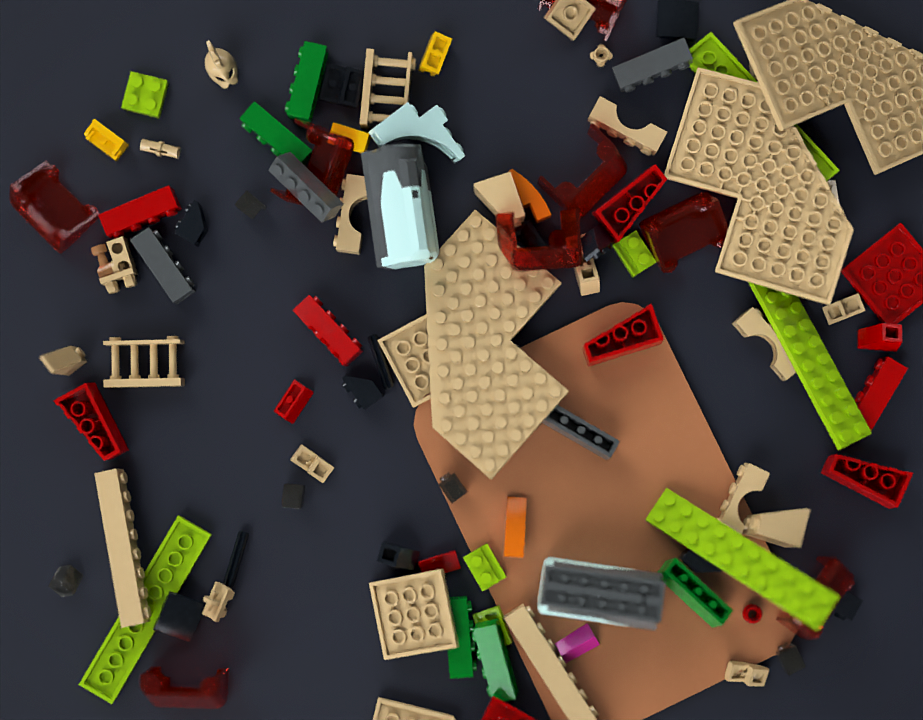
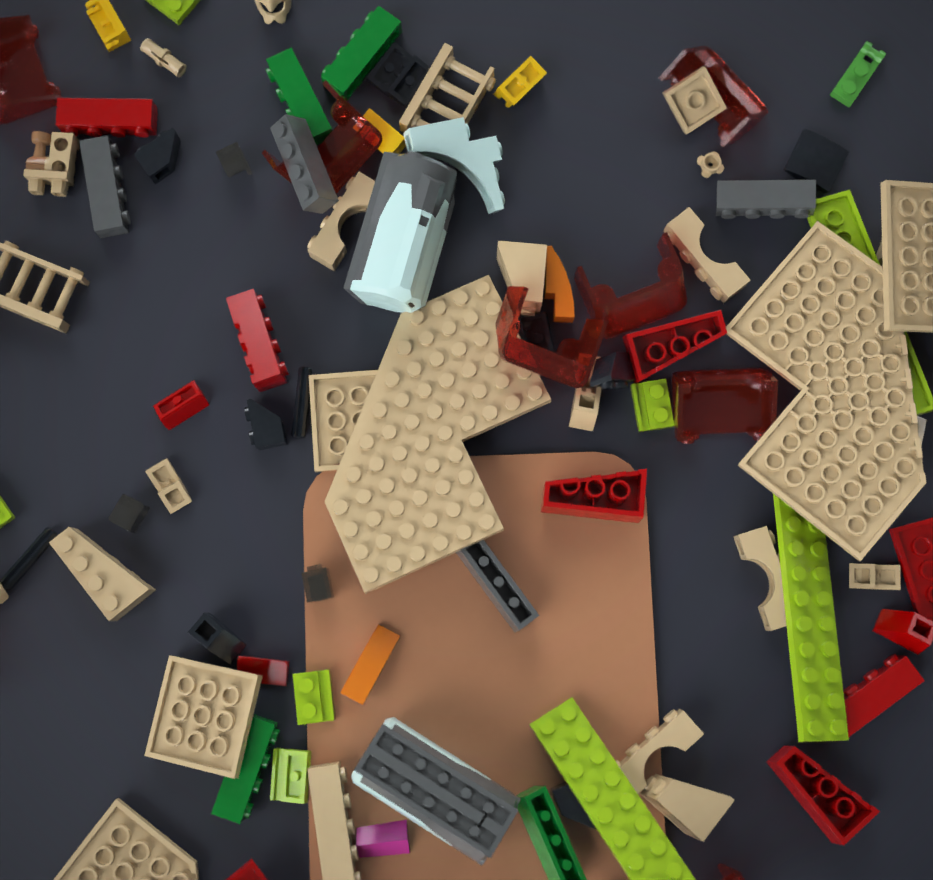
camera: 20 degrees right, 5 degrees down
(298, 549) = (101, 575): none -> tan wedge
(495, 660) = (275, 816): brick -> none

